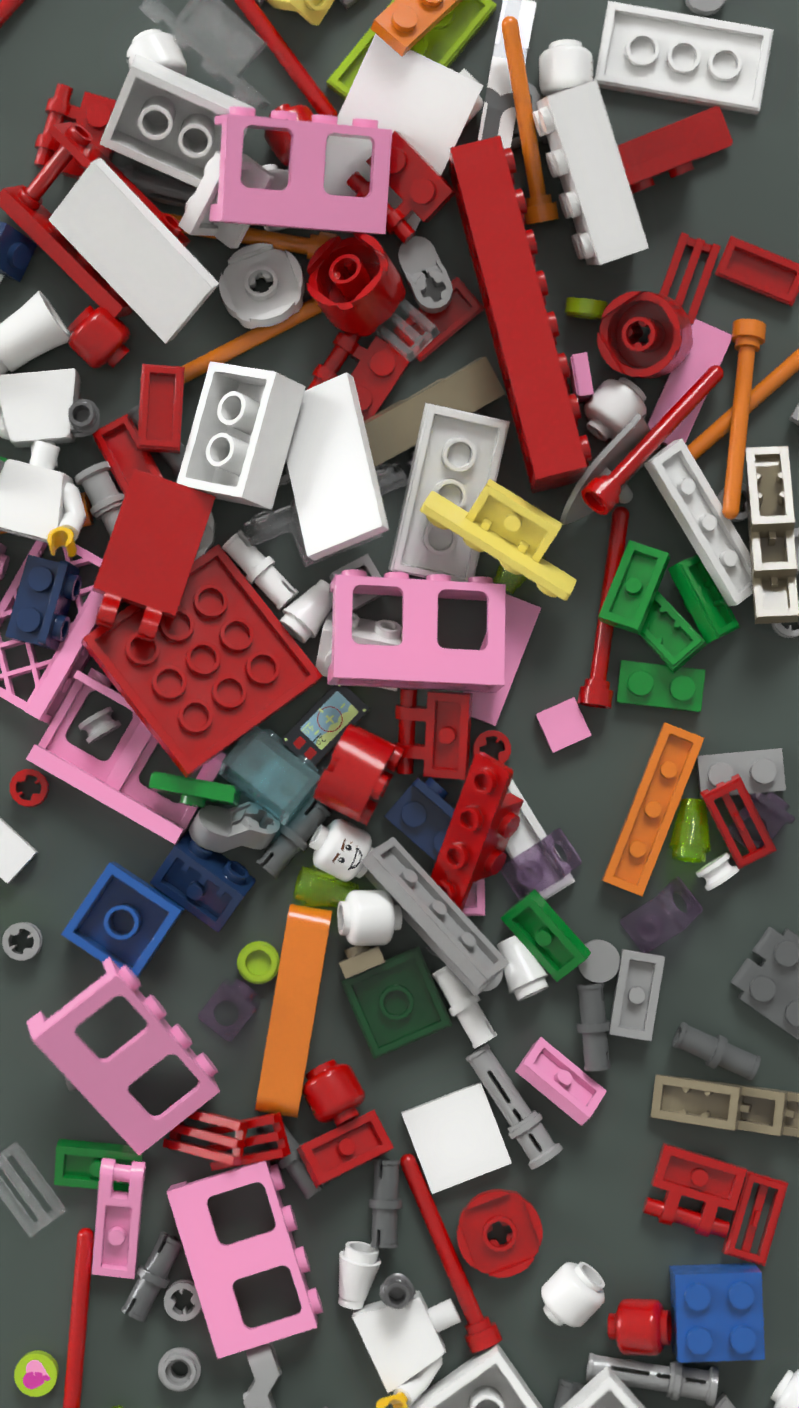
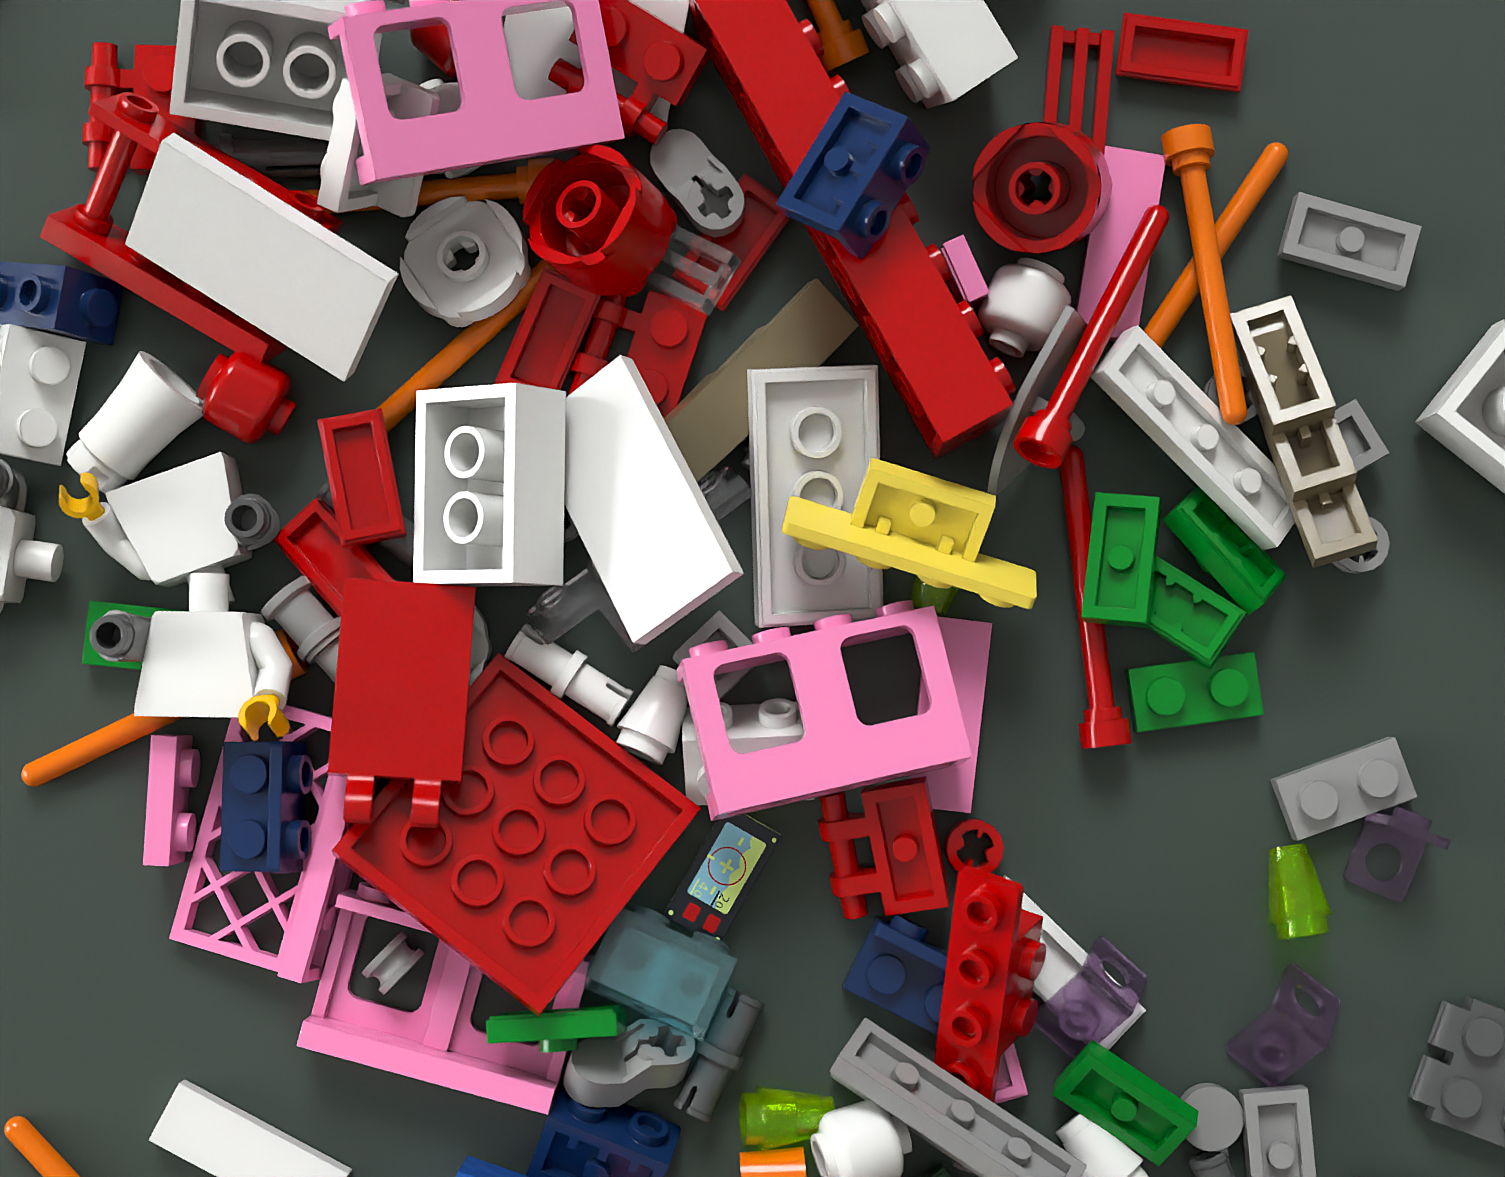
camera: 10 degrees left, 0 degrees up
(22, 777) = (328, 1093): red bush -> none
(304, 346) = (549, 333): none -> red tile
(341, 849) = (794, 1054): white head -> none
(358, 774) = (791, 940): red brick -> none
(525, 295) = (856, 173): none -> dark blue bracket
(563, 725) = (1068, 785): bright pink tile -> none
(585, 308) = (946, 171): lime tile -> none
(652, 809) = (1231, 876): orange plate -> none
(717, 871) = (1349, 942): white bush -> none
(722, 790) = (1330, 825): red tile -> none

